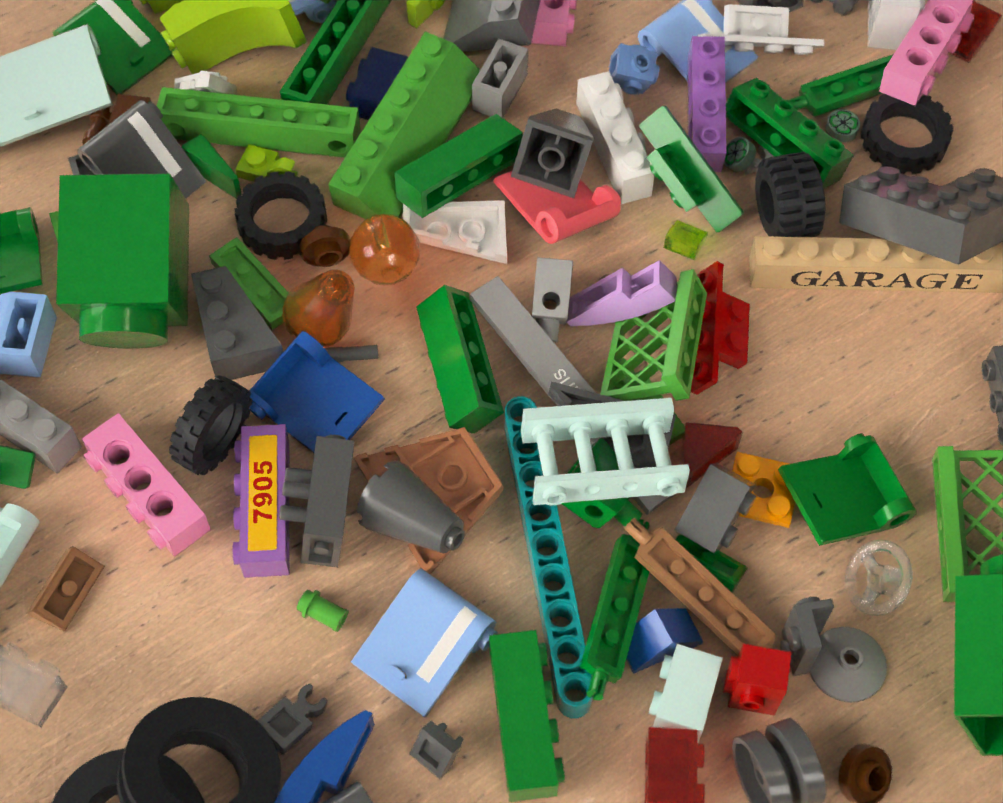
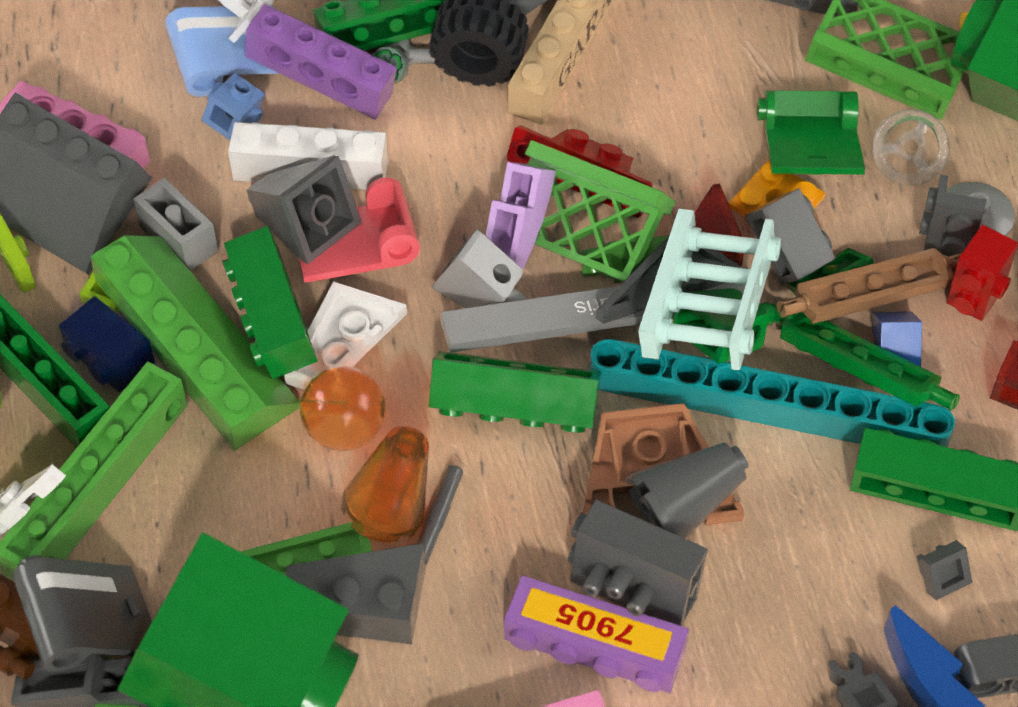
camera: 65 degrees left, 5 degrees down
(210, 425) = (496, 643): black tyre -> none
(212, 165) = (125, 544): green slope -> none
(262, 161) = (144, 501): lime plate -> none
(269, 189) = (219, 465): black tyre -> none
(313, 394) = (487, 548): blue door -> none
(322, 610) = (747, 624): bright green pin -> none
(325, 246) = (302, 465): reddish brown plate -> none
(425, 636) = (821, 536): light blue door -> none
(685, 239) = (462, 151): clear neon green slope -> none
(687, 171) = (396, 105): bracket -> none
(687, 689) = (965, 340): light aqua brick -> none

